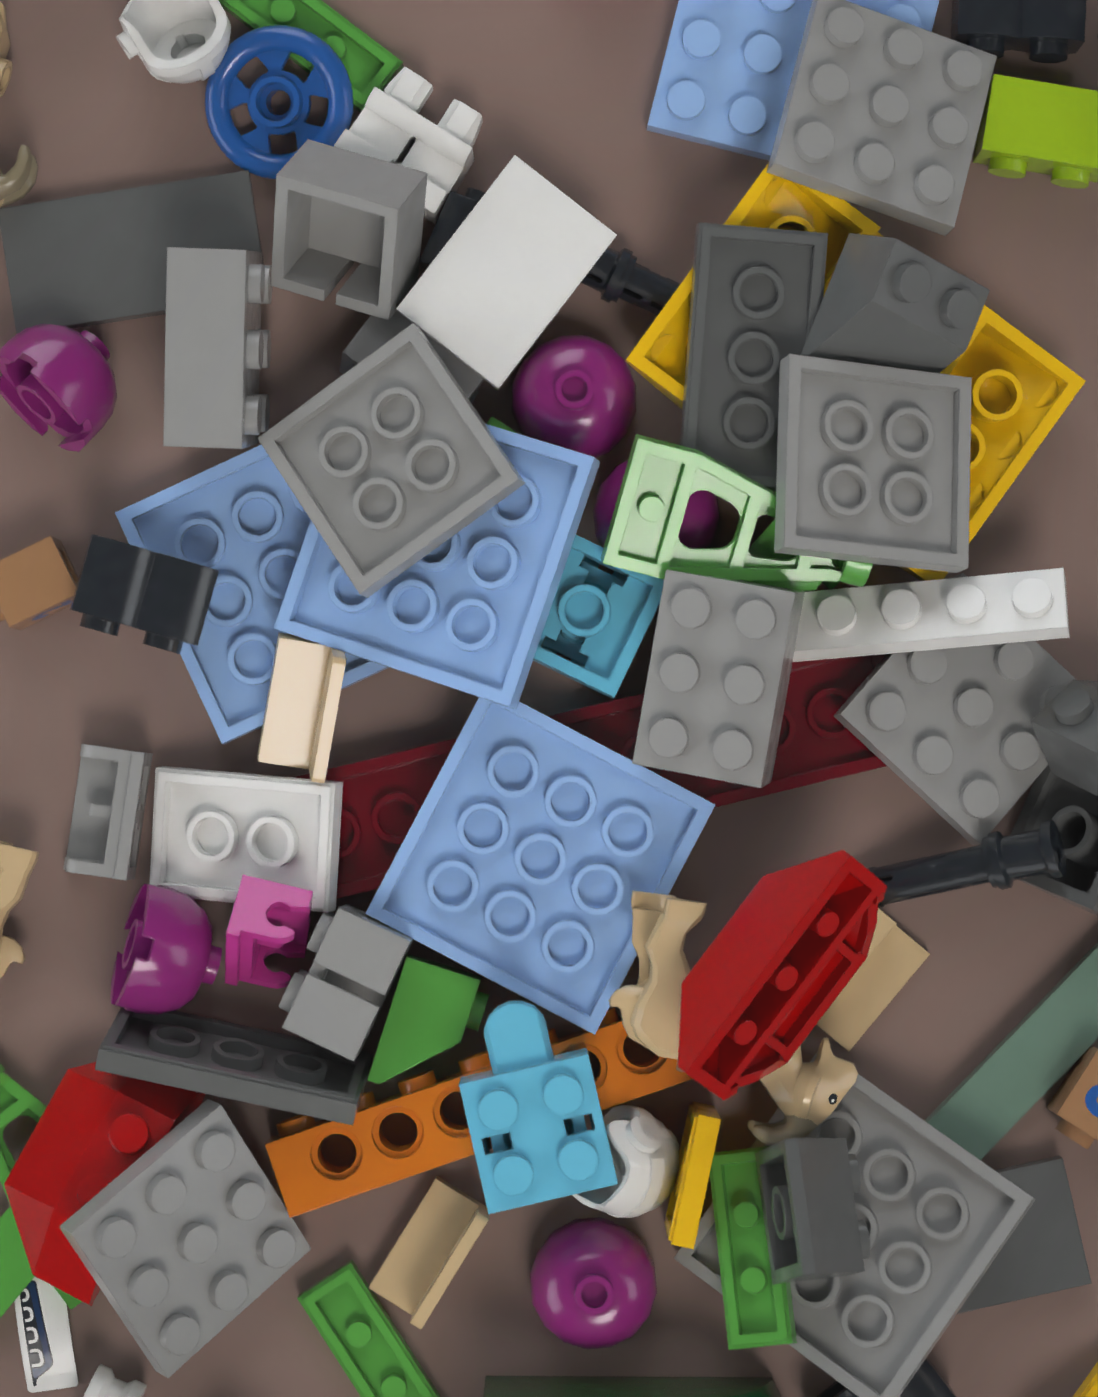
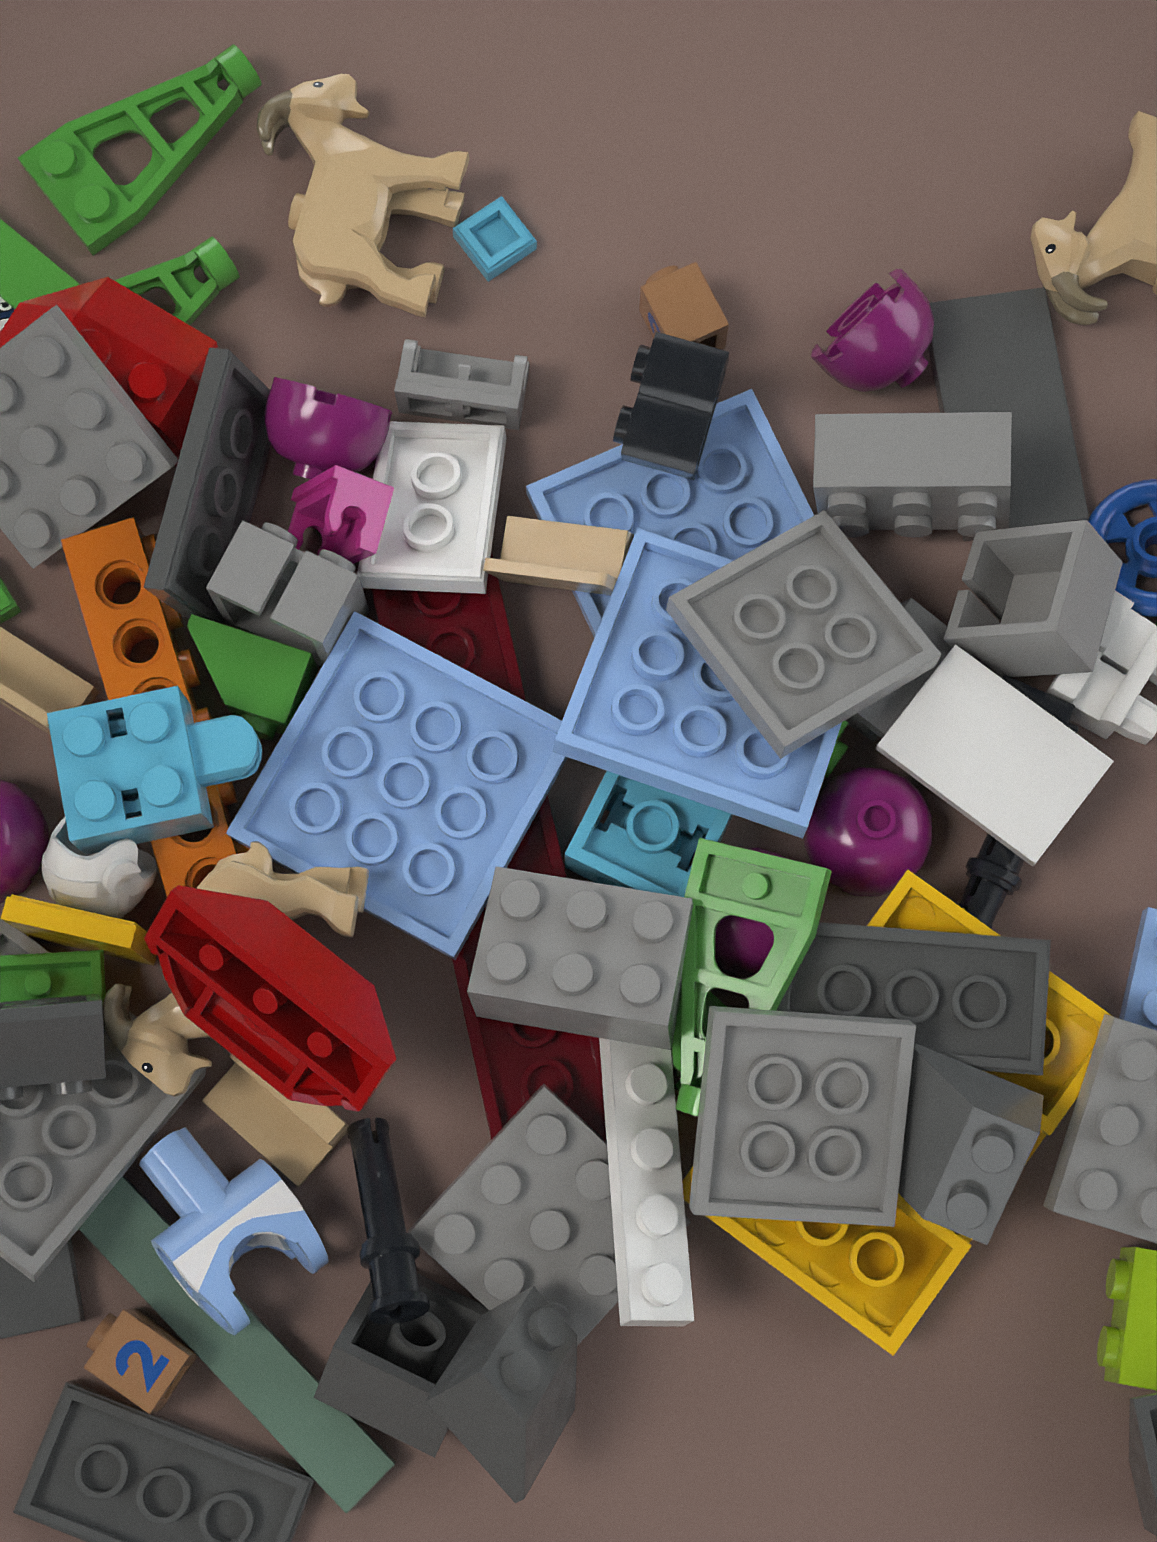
camera: 90 degrees right, 10 degrees down
(968, 1024) = (223, 1222): none -> light blue connector

